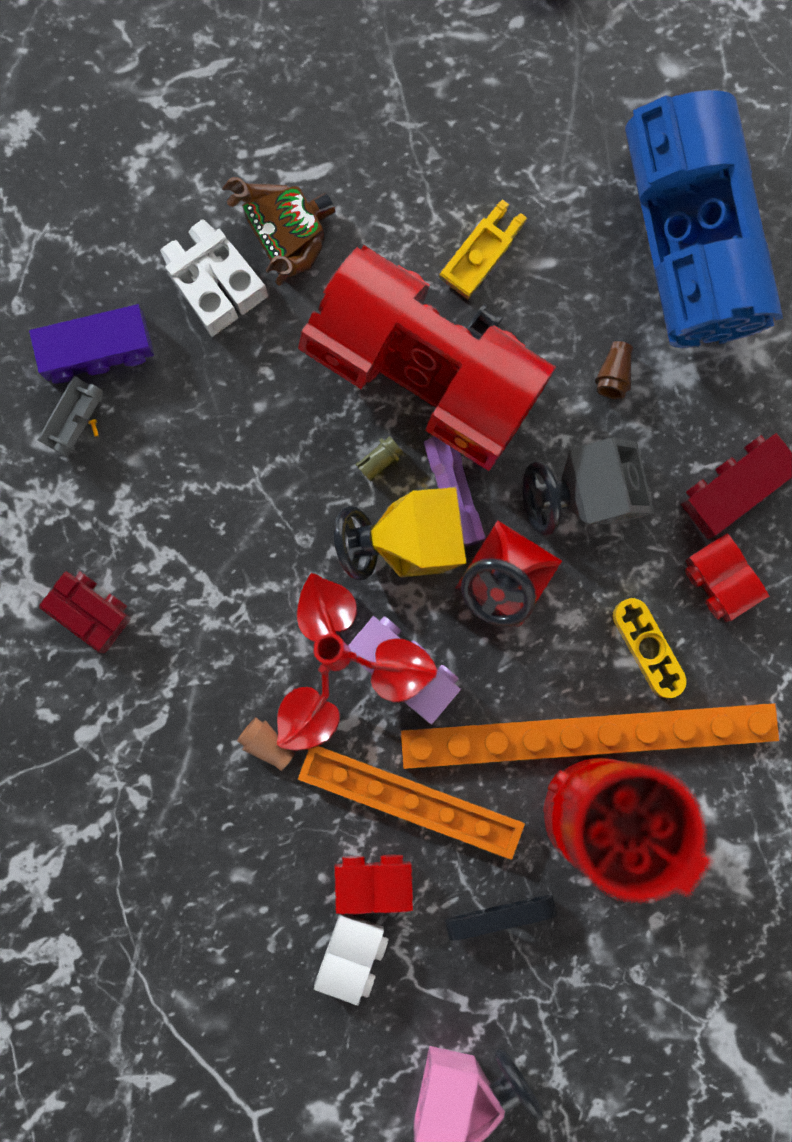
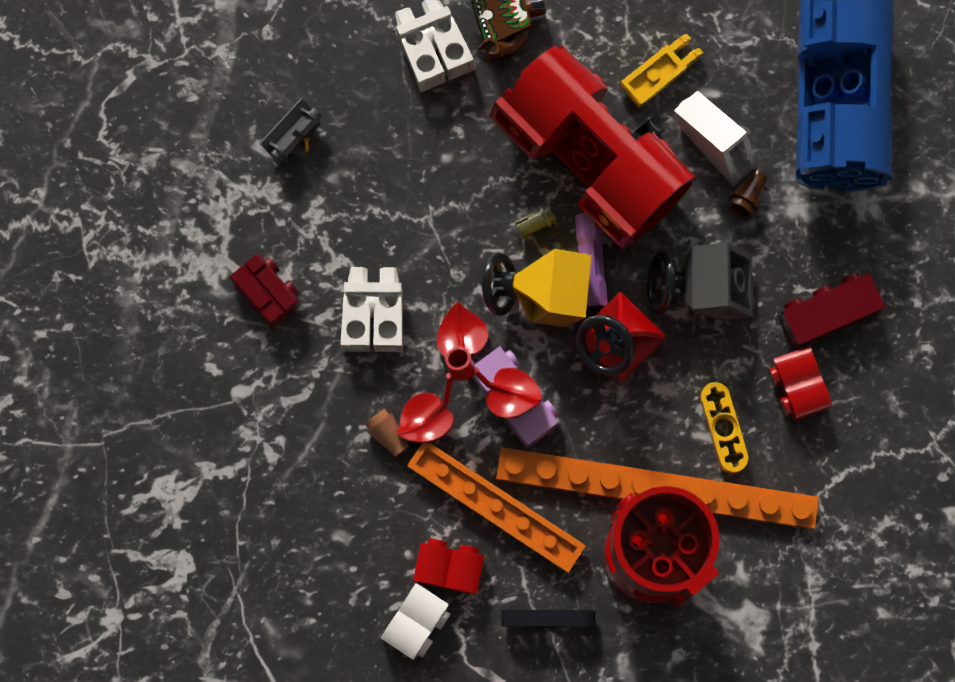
camera: 20 degrees right, 5 degrees down
(91, 344) = (321, 76): dark purple brick -> none
(212, 595) = (372, 301): none -> white hips
(565, 313) = (716, 137): none -> white slope

